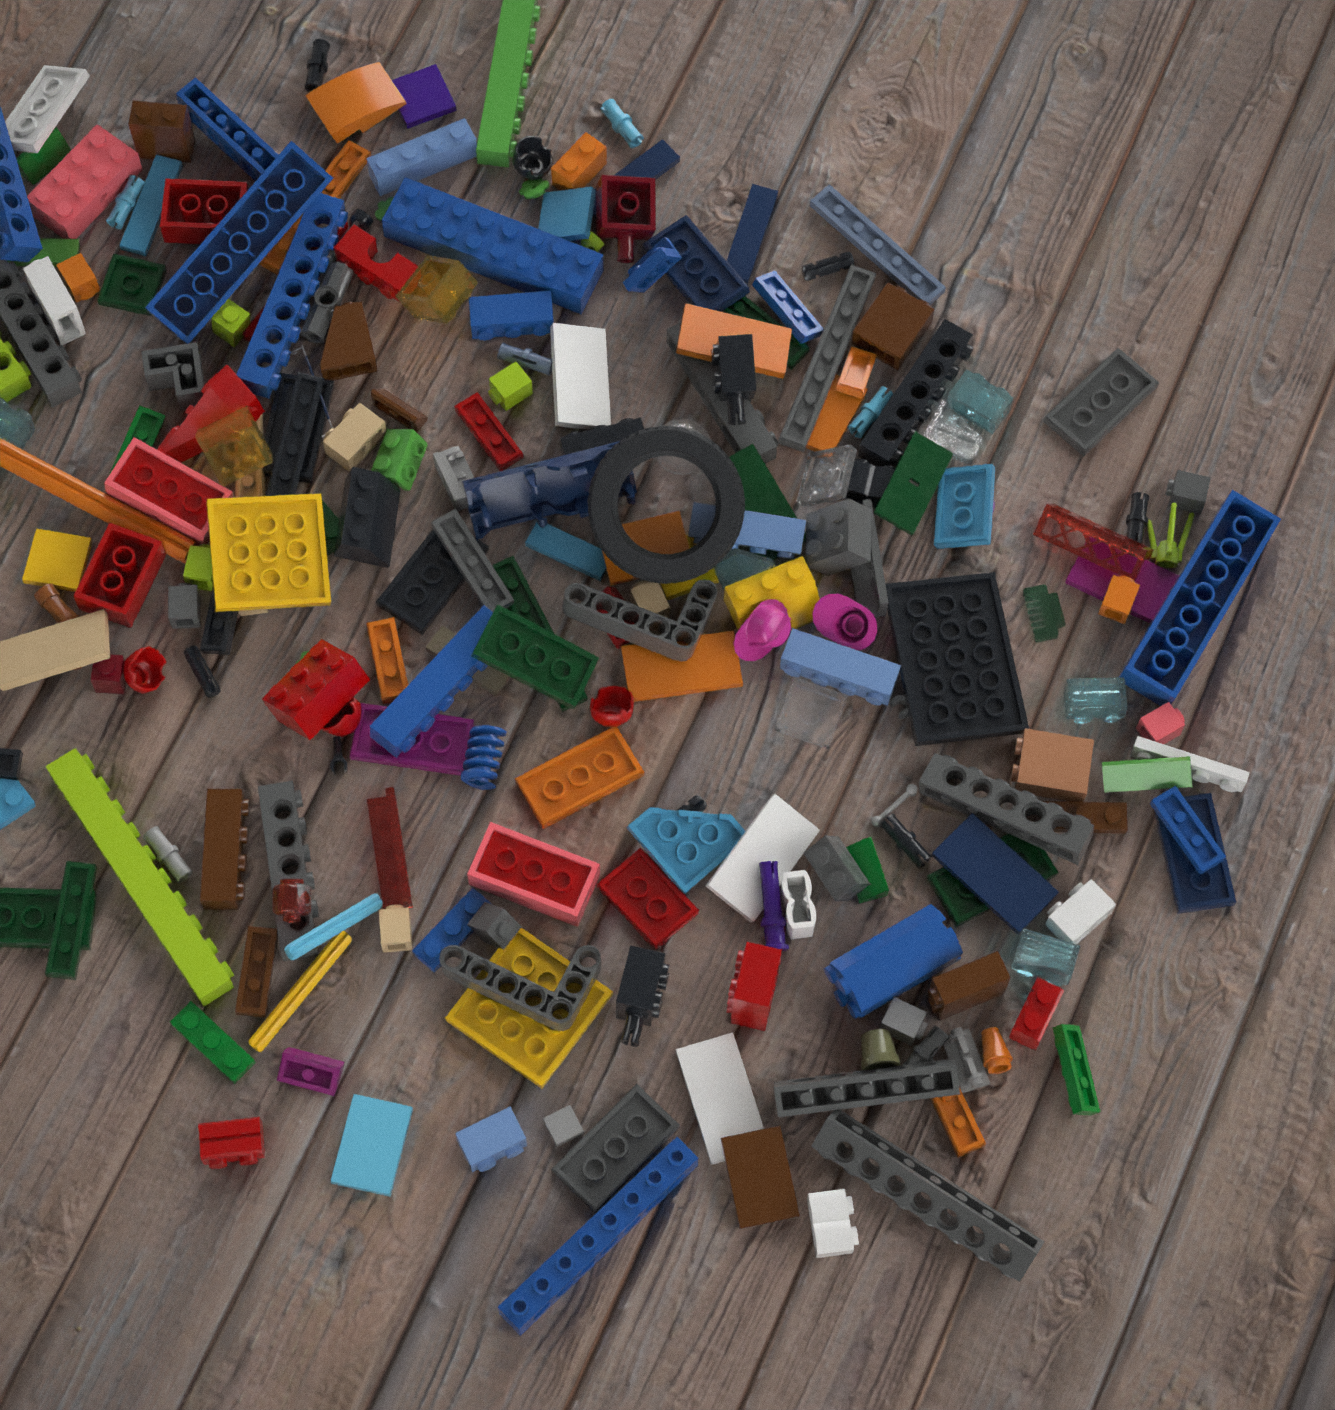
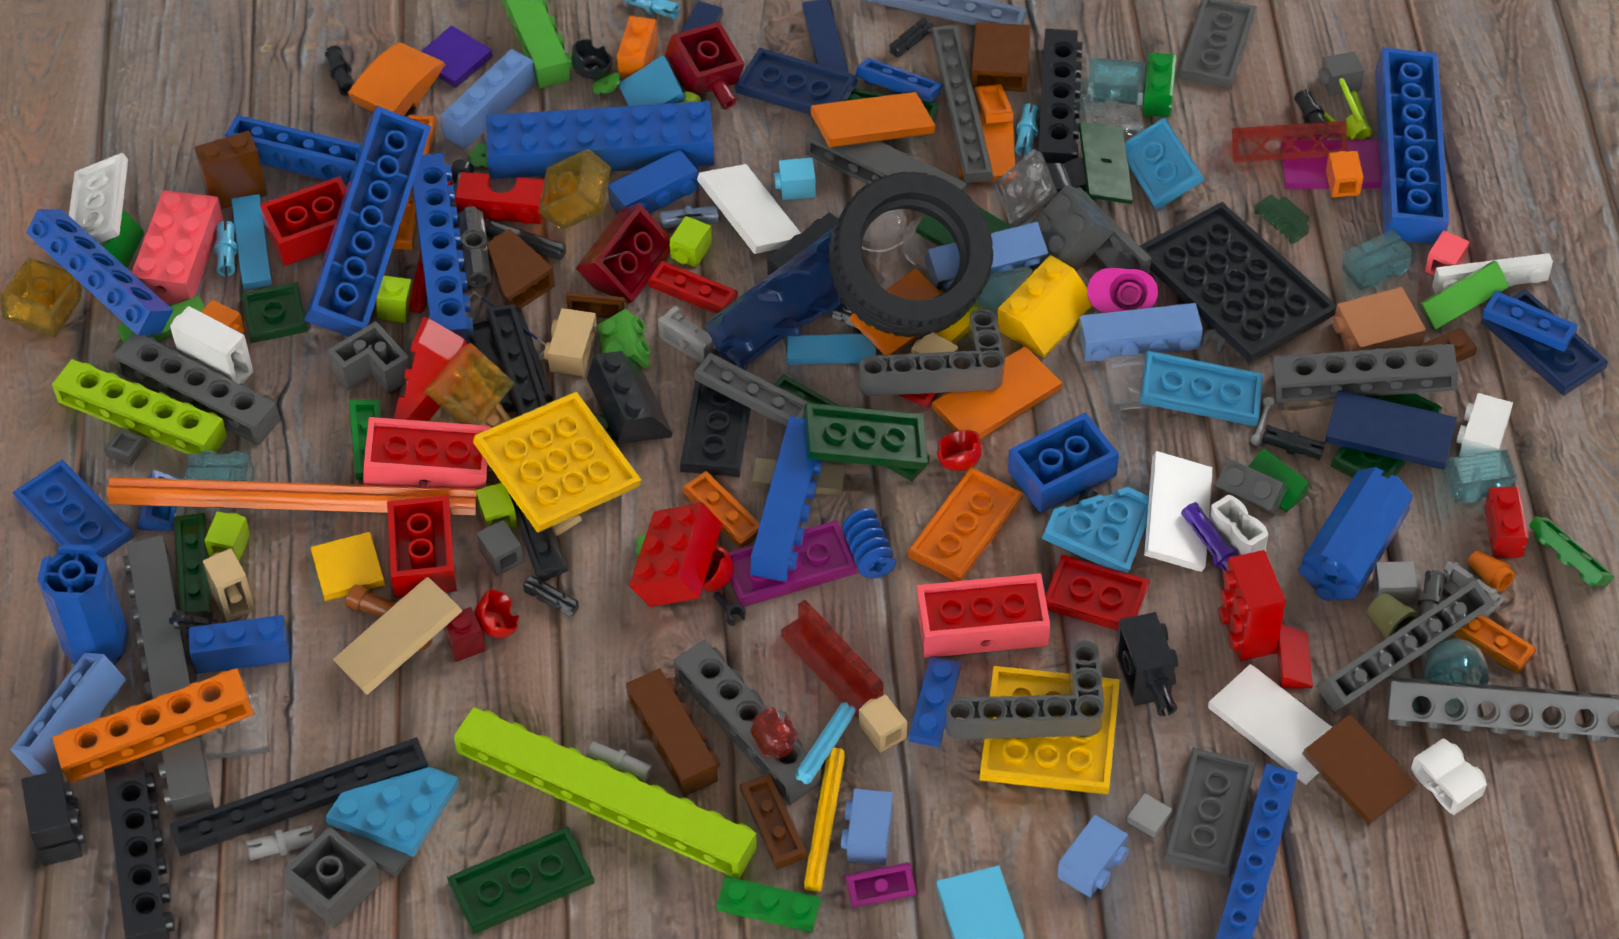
camera: 25 degrees left, 15 degrees down
(71, 920) = (562, 860): dark green tile -> none
(328, 1017) = (869, 826): none -> medium blue brick
(377, 315) = (537, 243): none -> black axle
(448, 372) = (626, 254): none -> dark red slope
(494, 925) = (974, 674): dark grey brick -> none
(637, 366) = (796, 179): none -> medium azure brick
(652, 266) = (758, 94): blue bracket -> none
(691, 763) = (1063, 462): none -> blue brick
(735, 373) = (897, 130): black brick -> none
(763, 629) = (1054, 330): dark pink piece -> none
(774, 1045) = (1294, 659): none -> red slope
(858, 748) = (1201, 388): none -> dark azure tile
(900, 1125) = (1456, 662): none -> clear light blue cylinder
(967, 986) = (1434, 523): reddish brown brick -> none
(1014, 424) = (1159, 85): none -> green brick

